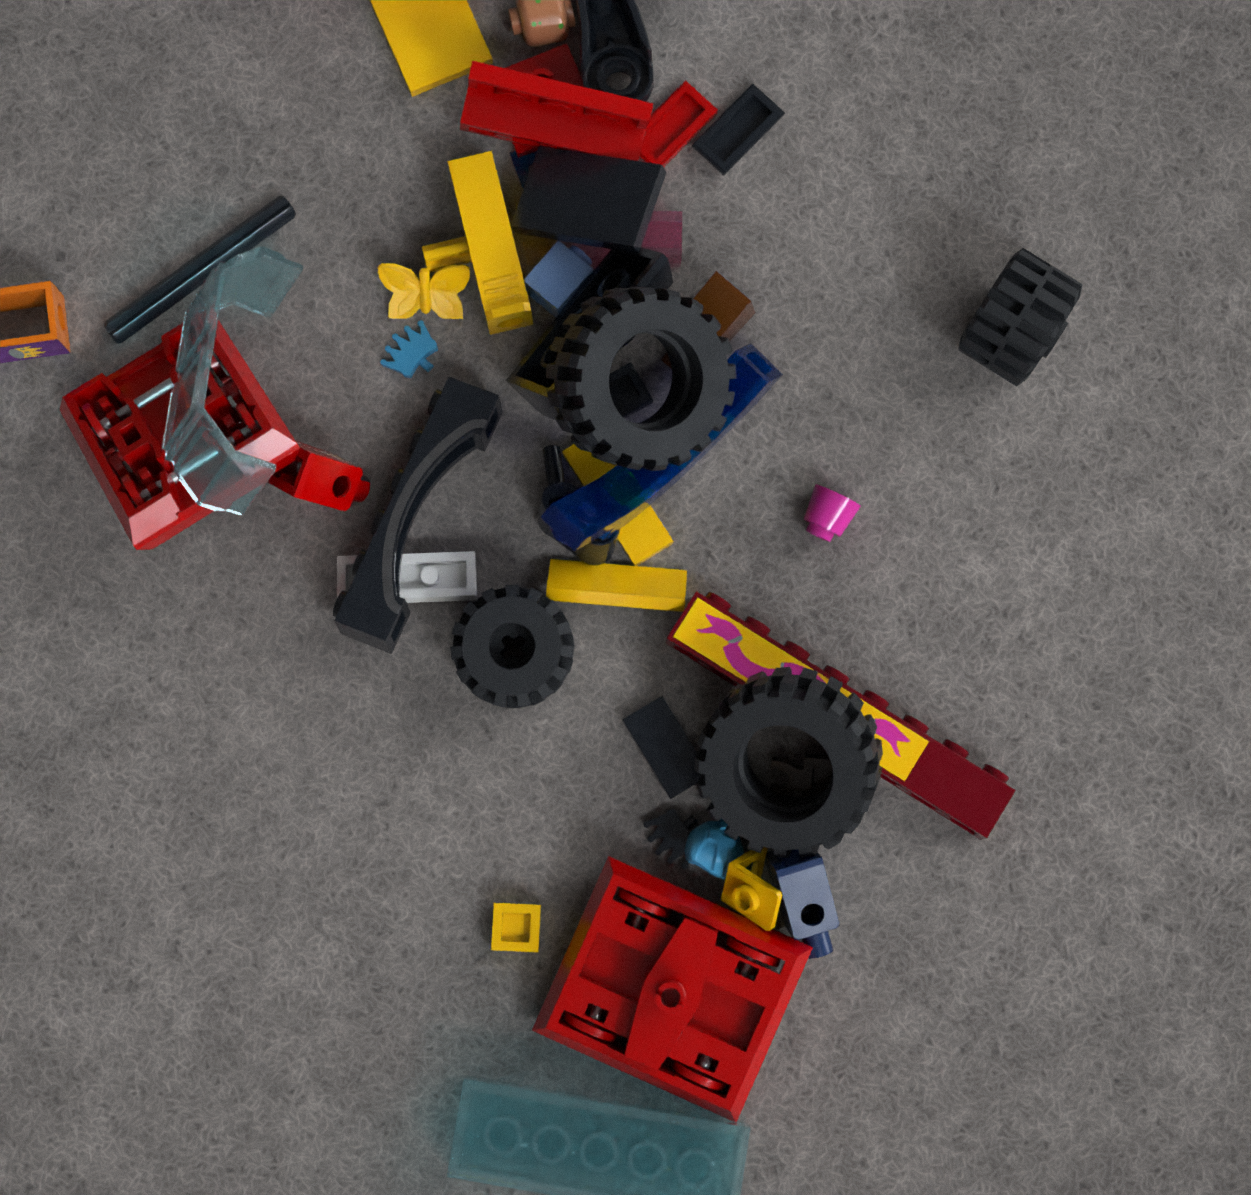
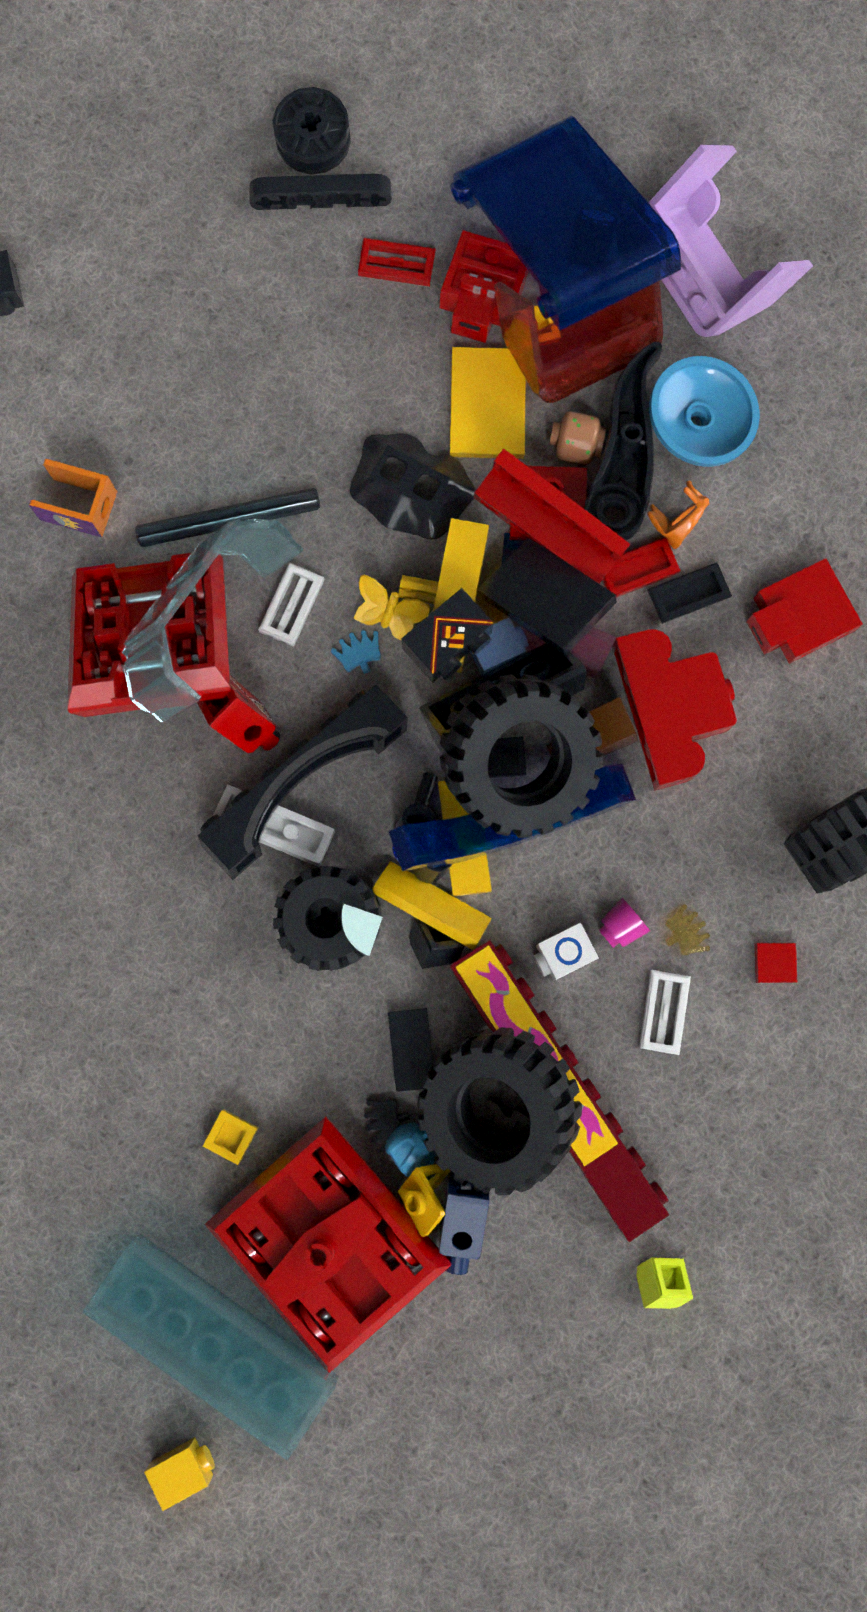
camera: 25 degrees right, 0 degrees up
(314, 370) = (278, 633): none -> white tile
(378, 172) = (396, 503): none -> black piece
(504, 288) = (448, 636): none -> black brick
(554, 637) = (360, 928): none -> light aqua tile
(638, 627) = (433, 946): none -> black slope
(698, 56) = (684, 522): none -> orange piece
(774, 255) = (673, 704): none -> red brick
(781, 570) = (565, 952): none -> white brick
(868, 97) = (803, 613): none -> red piece
(899, 493) = (685, 933): none -> clear yellow piece
(904, 548) = (669, 978): none -> white tile
(1007, 480) = (775, 963): none -> red tile
(1042, 866) = (663, 1283): none -> neon yellow slope

